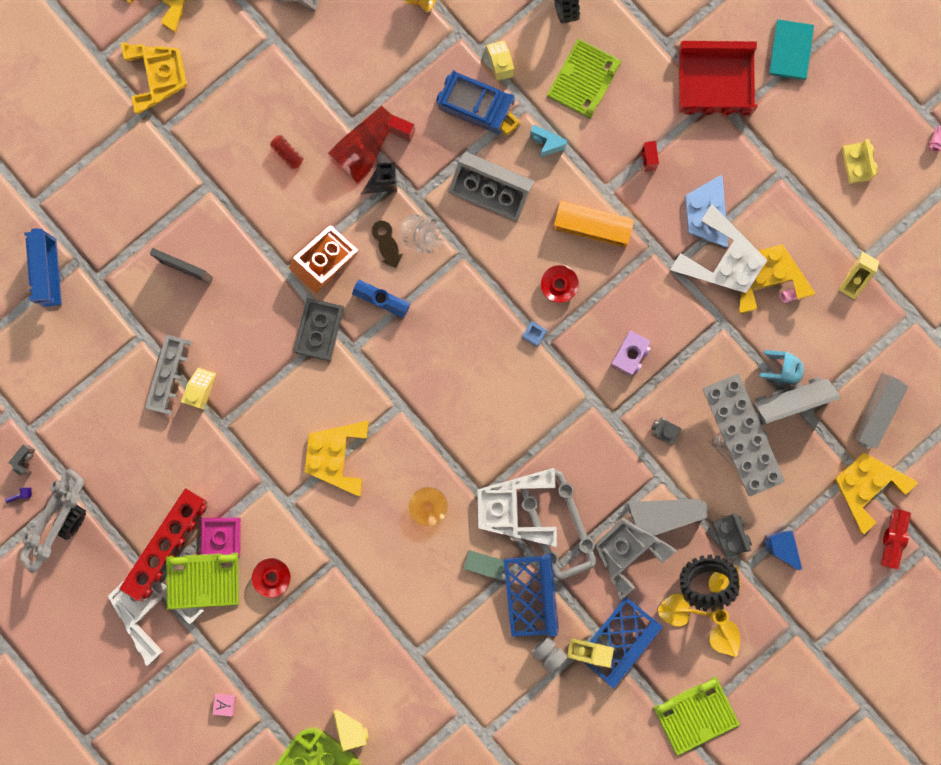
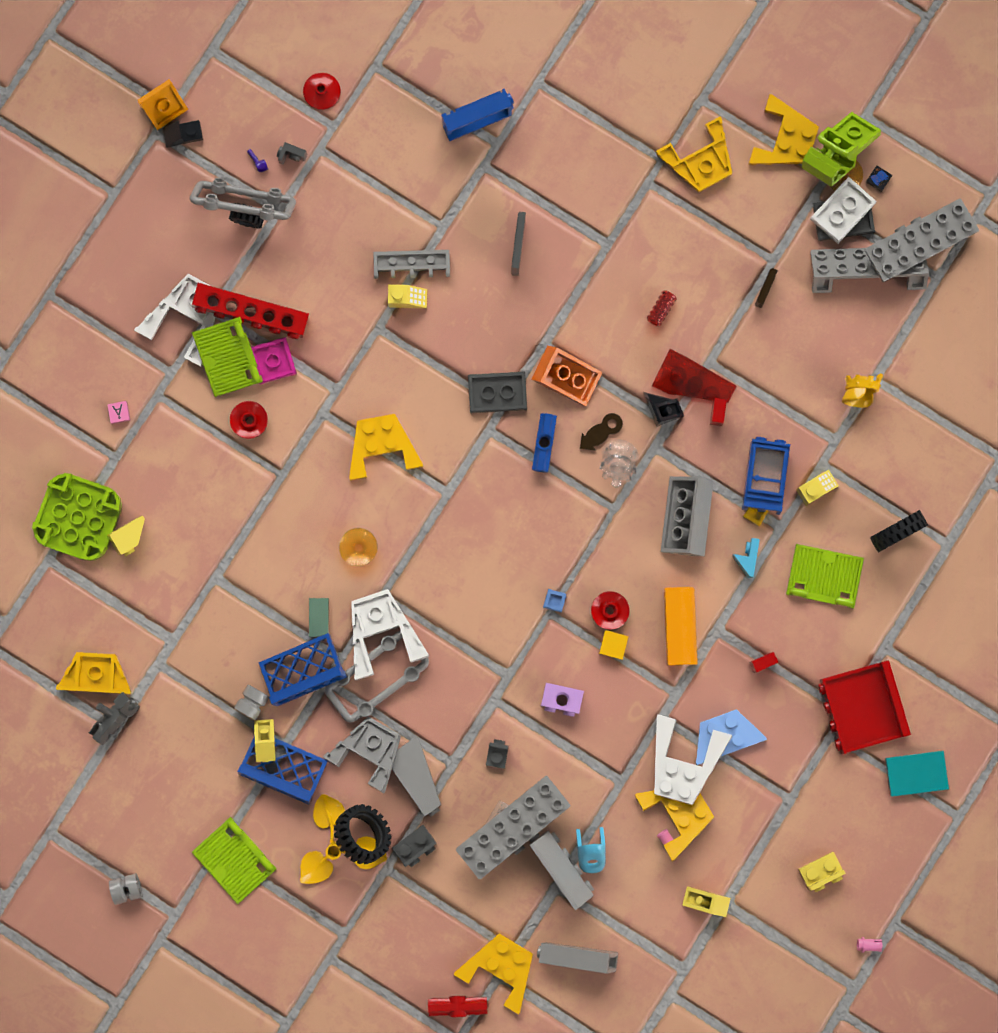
camera: 70 degrees right, 0 degrees up
(297, 49) = (766, 287): none -> dark brown tile
(592, 290) = (613, 645): none -> yellow piece
(784, 548) = (416, 899): blue slope -> none

